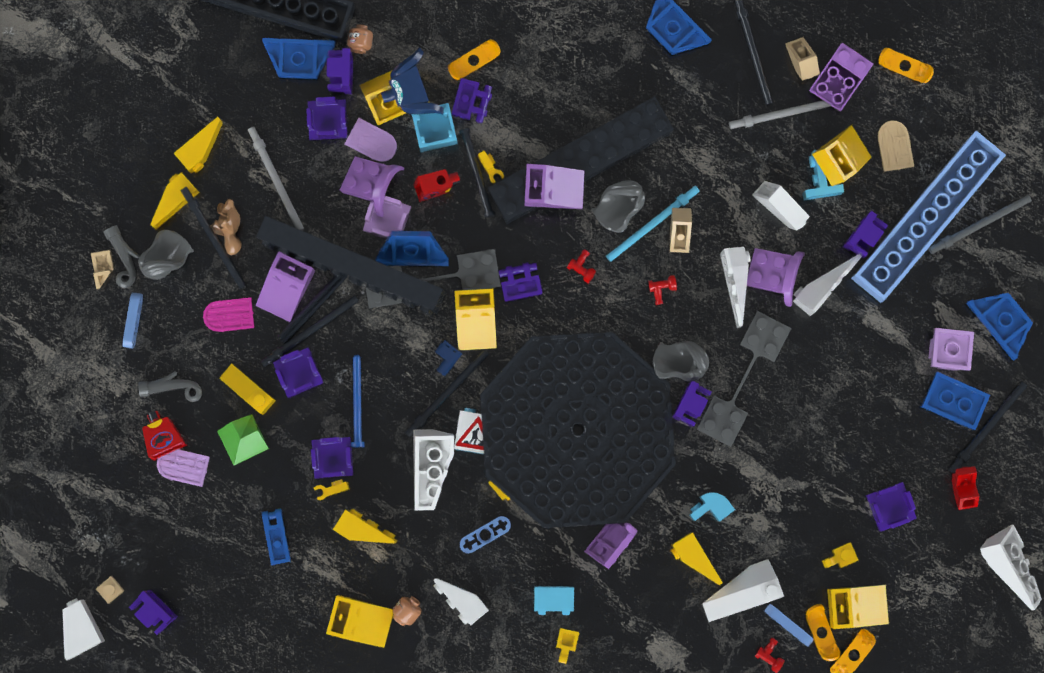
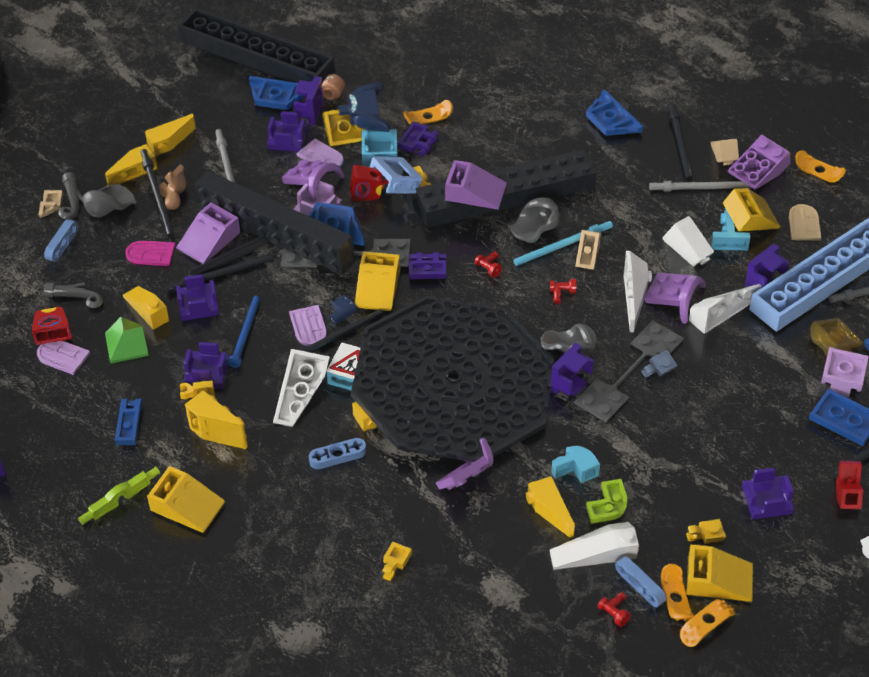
camera: 15 degrees right, 35 degrees down
(294, 624) = (110, 501): none -> lime piece
(406, 611) = (237, 501): nougat head -> none
(418, 381) = (308, 325): none -> lavender window
(466, 187) = (392, 170): none -> light blue panel
(467, 603) = (301, 503): white slope -> none
(553, 599) = (392, 509): medium azure container -> none
(753, 543) = (612, 506): none -> lime plate
(774, 368) = (661, 364): none -> sand blue plate
(938, 303) = (833, 334): none -> clear yellow slope

